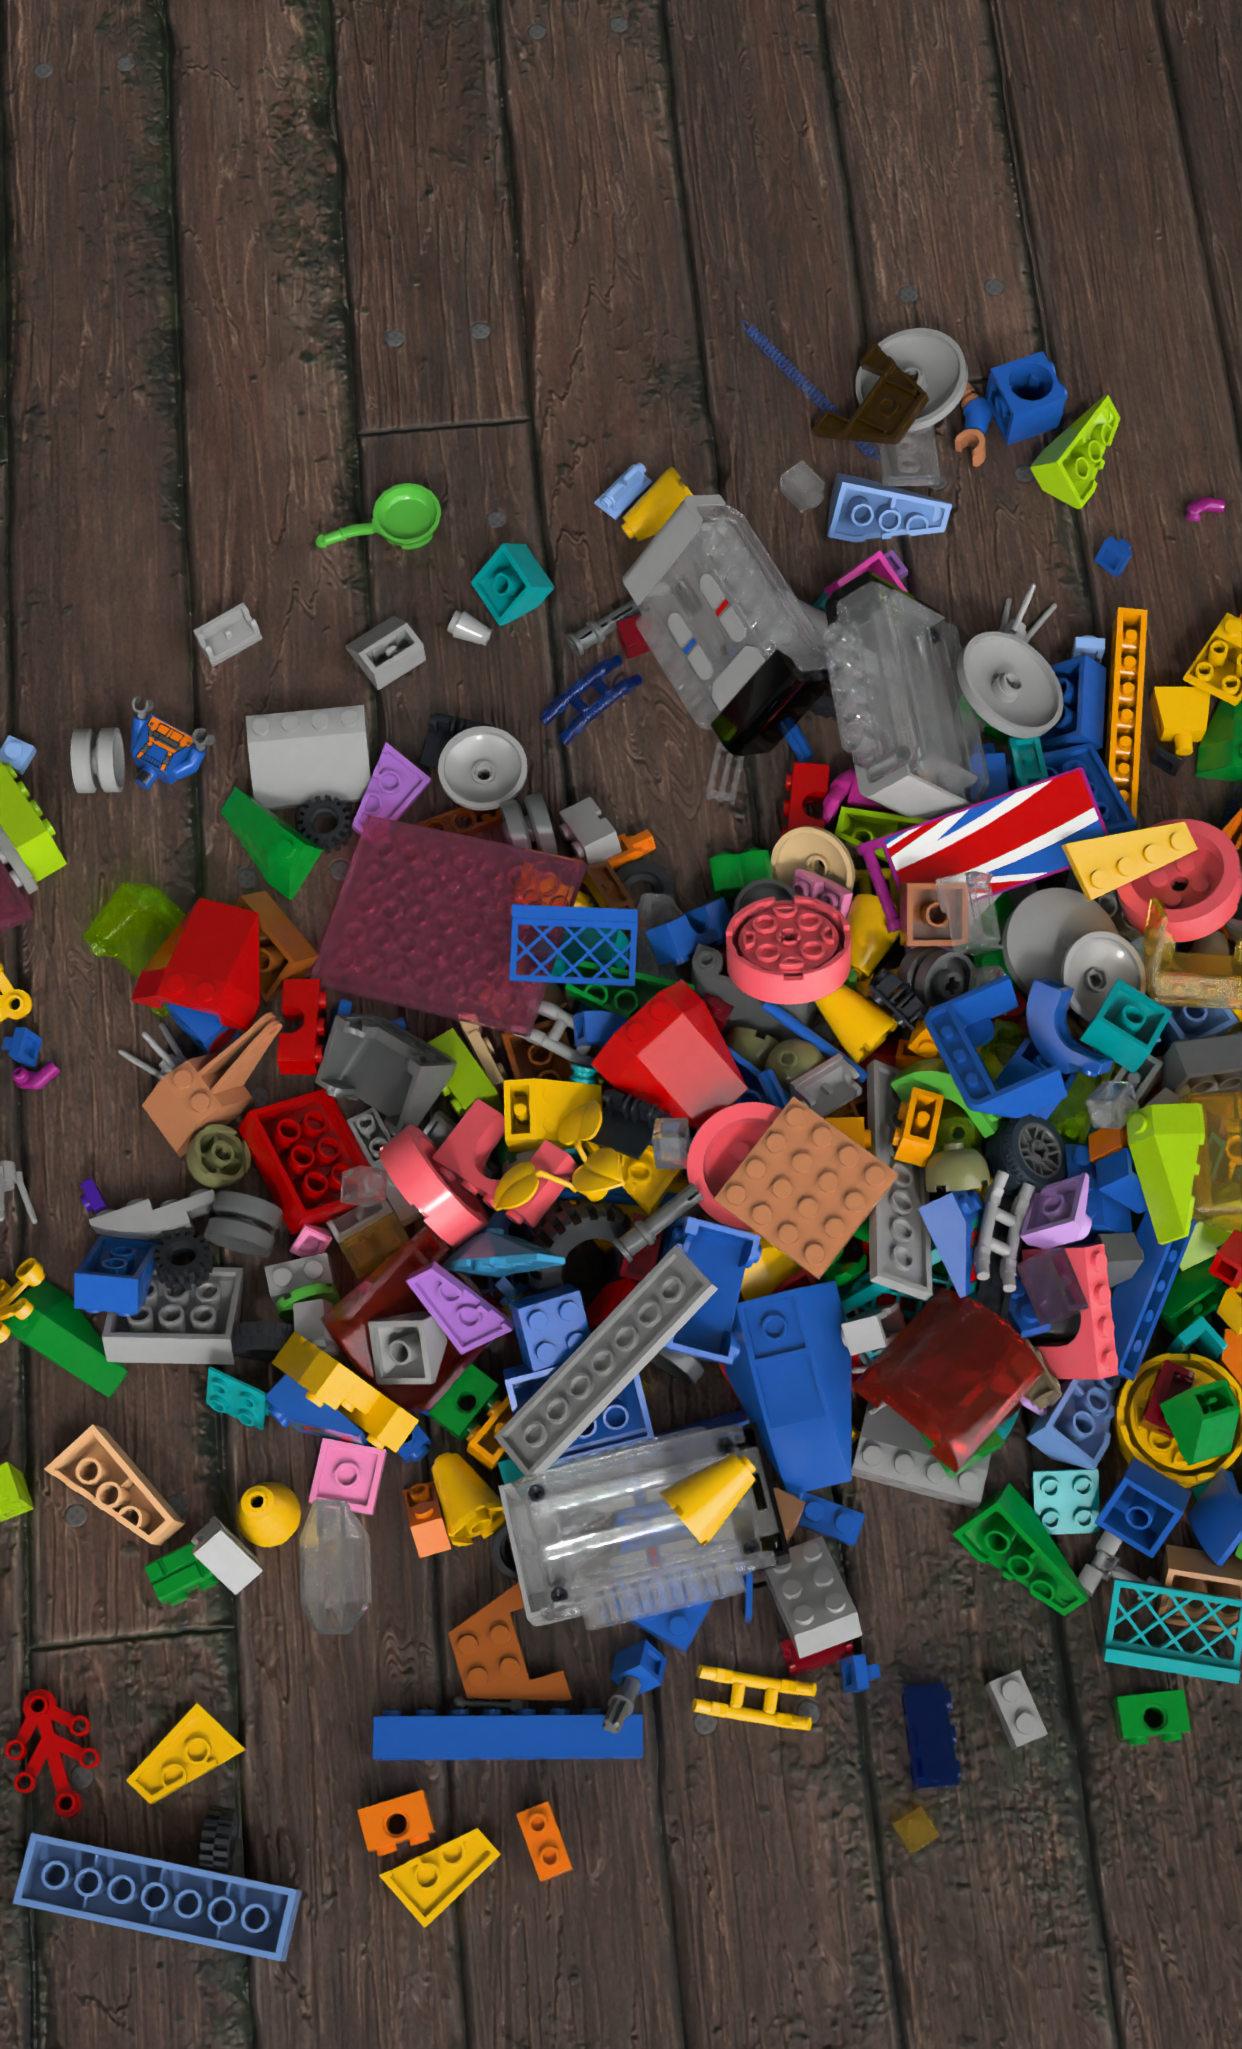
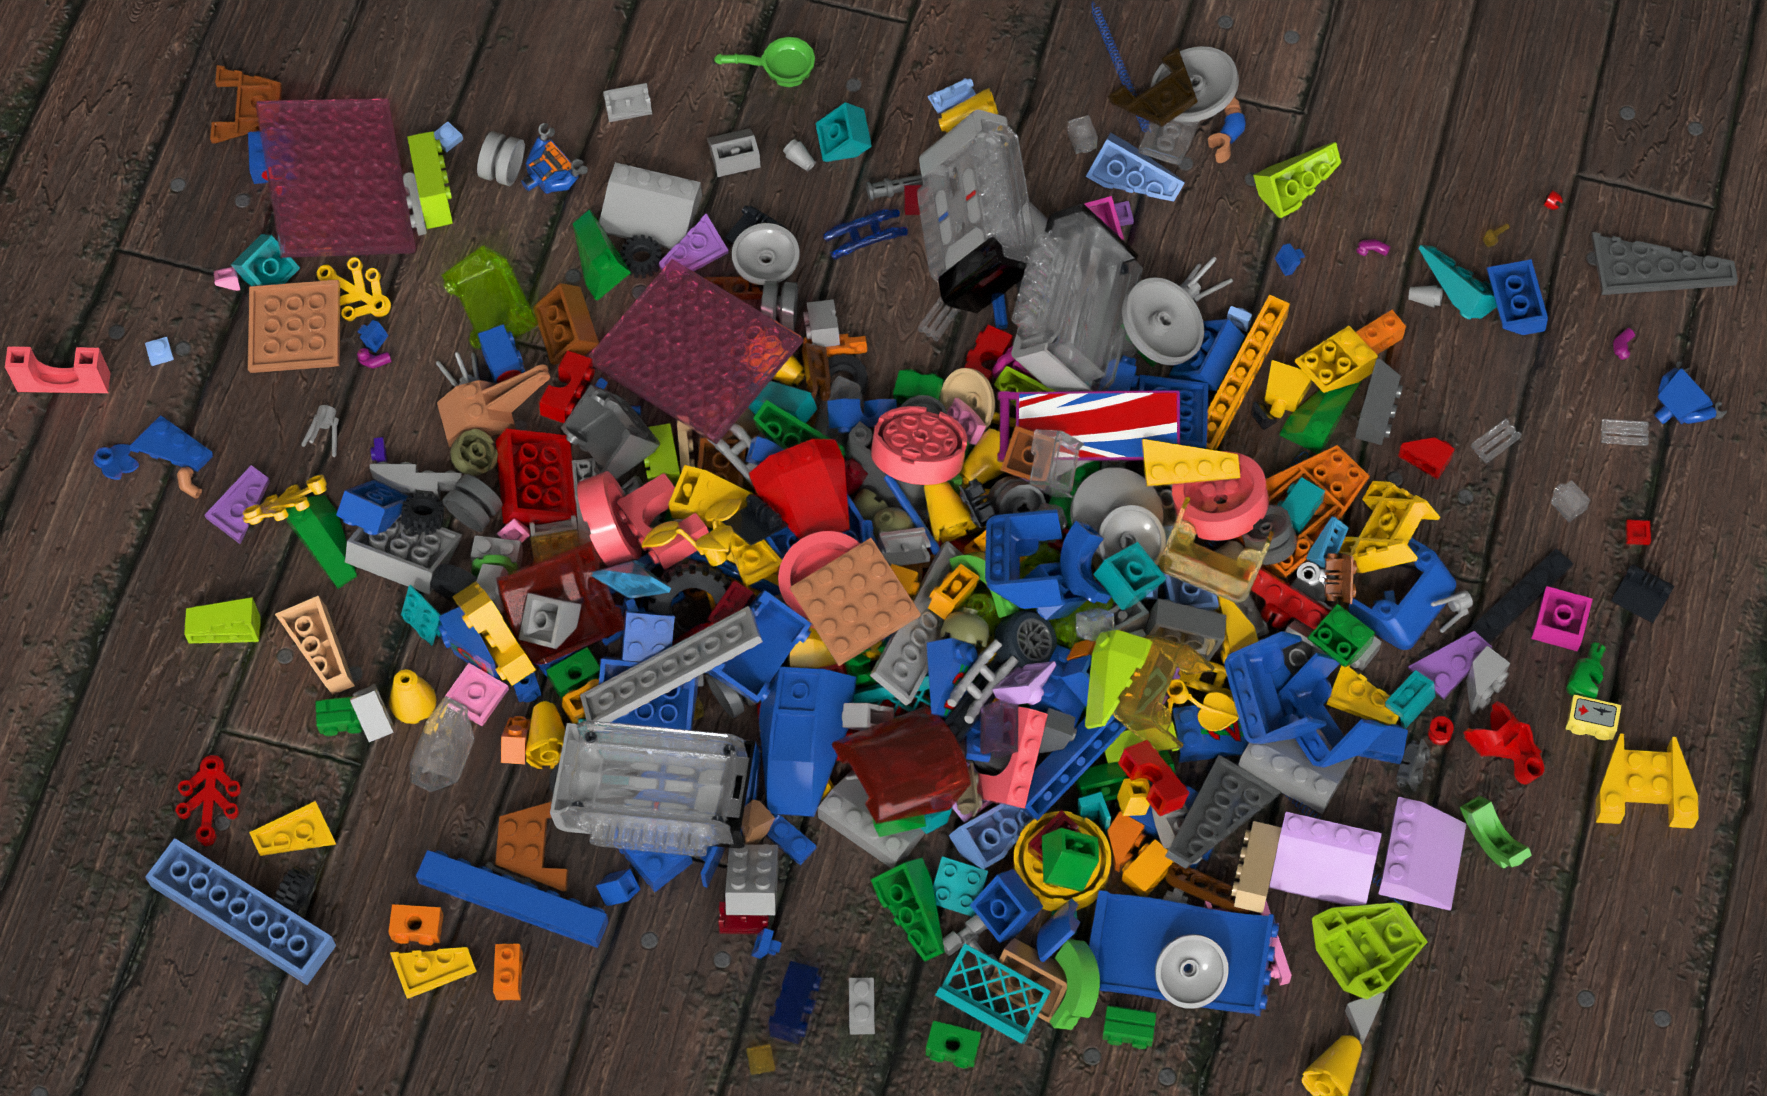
camera: 20 degrees right, 5 degrees down
(208, 965) = (517, 320): red wedge -> none
(363, 1186) = (563, 506): clear brick -> none
(458, 1309) = (590, 604): medium lavender wing -> none
(574, 918) = (782, 374): blue fence -> none
(583, 1073) = (742, 481): teal bush -> none
(621, 1704) = (594, 900): dark grey axle -> none
(645, 1231) = (735, 593): dark grey pin -> none
(671, 1143) = (777, 542): clear brick -> none
(710, 1495) = (700, 771): yellow cone -> none
(771, 1686) = (682, 922): yellow piece -> none
(1019, 417) = (1267, 139): blue brick -> none
(1027, 761) = (1151, 376): teal hinge -> none

